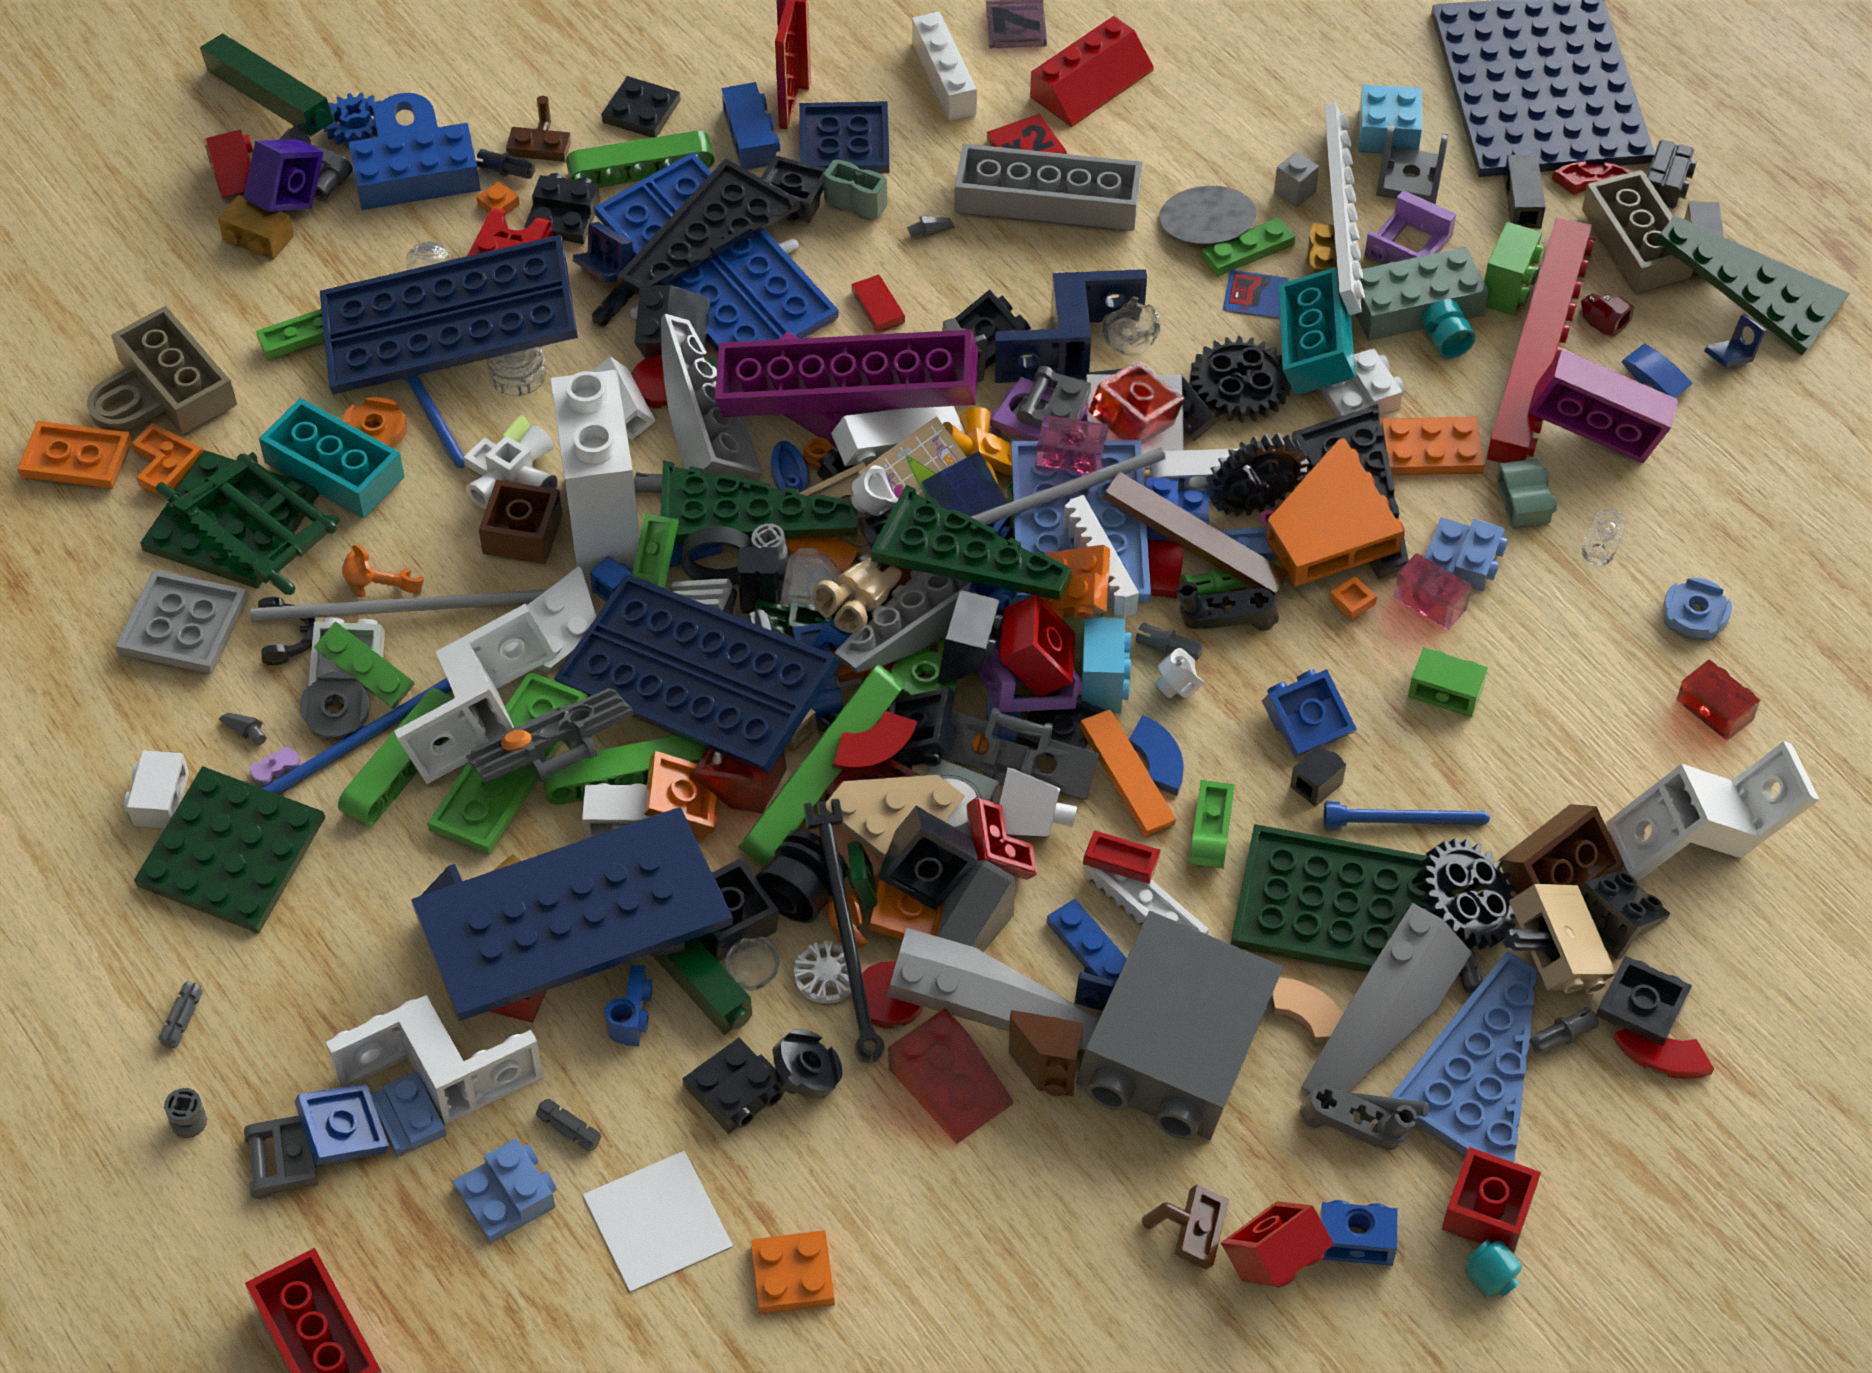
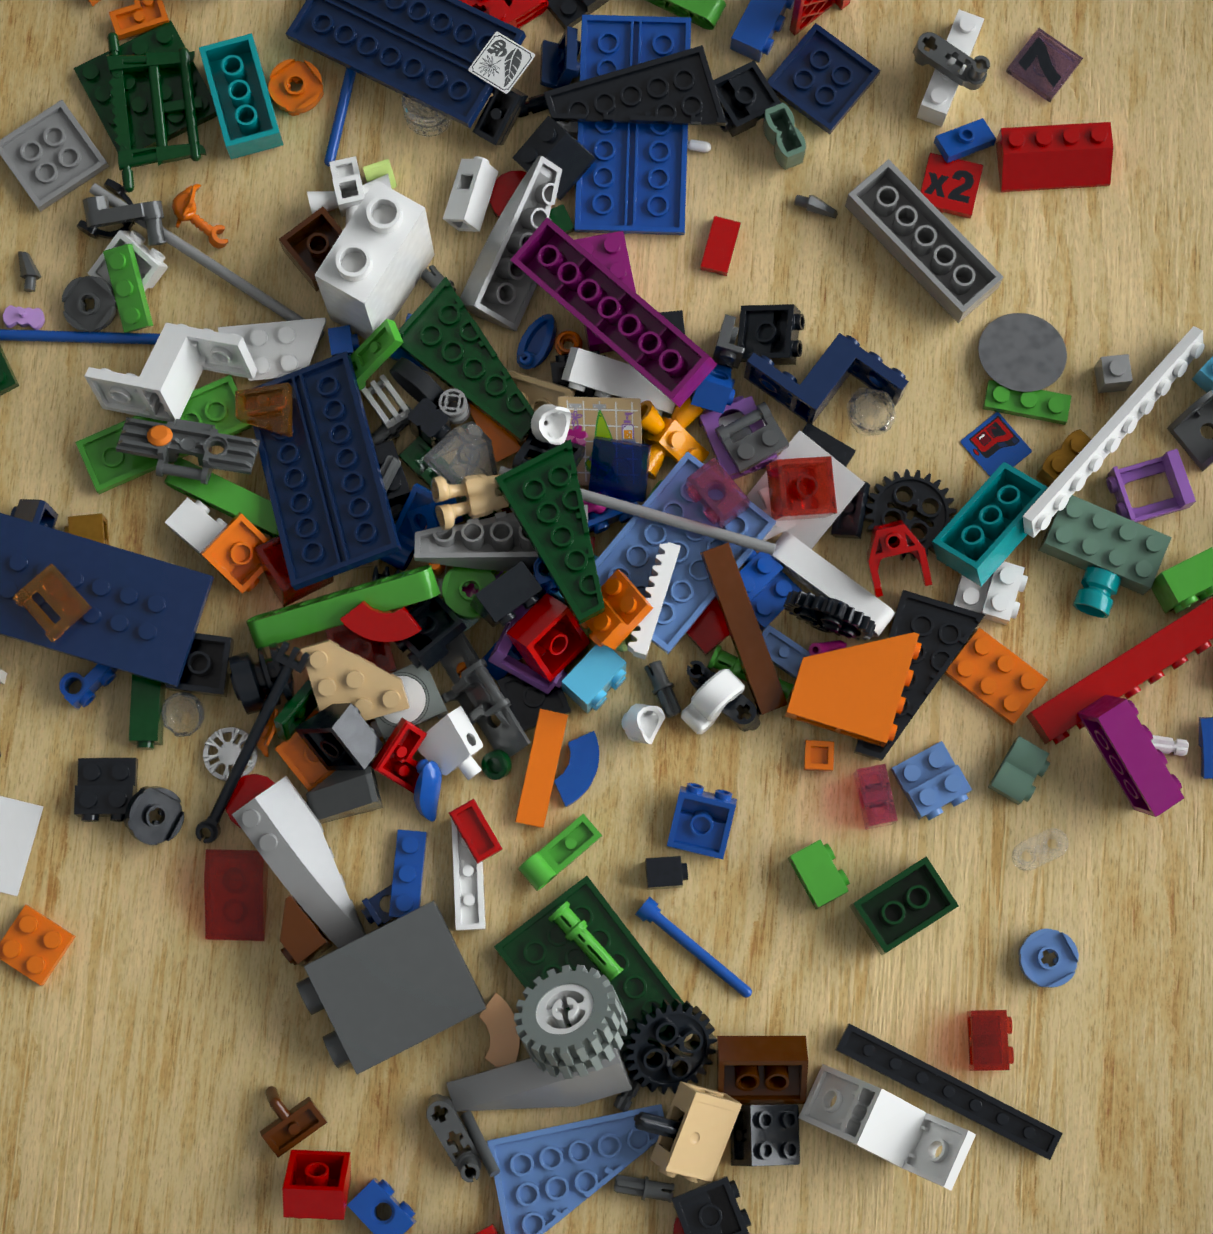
camera: 40 degrees right, 25 degrees up
(285, 624) = (100, 215): none -> dark grey beam
(387, 770) = (72, 387): bright green beam -> none
(553, 911) = (59, 595): none -> clear orange plate
(562, 268) = (501, 62): none -> white sticker
(591, 320) = (500, 115): none -> black brick
(594, 664) = (266, 407): none -> clear orange wing
(929, 47) = (941, 50): none -> dark grey beam
(991, 387) = (715, 390): none -> blue brick
(1007, 106) = (964, 140): none -> blue plate
(1044, 856) = (427, 788): none -> blue arm
(1085, 799) = (496, 764): none -> dark green tile
(1222, 614) = (711, 700): none -> white animal
(1252, 388) = (905, 543): none -> red piece
(1293, 865) = (575, 930): none -> bright green pin
(1369, 915) = (593, 1013): none -> light grey wheel
(1543, 649) = (904, 905): none -> dark green brick
(1729, 760) = (949, 1091): none -> black plate

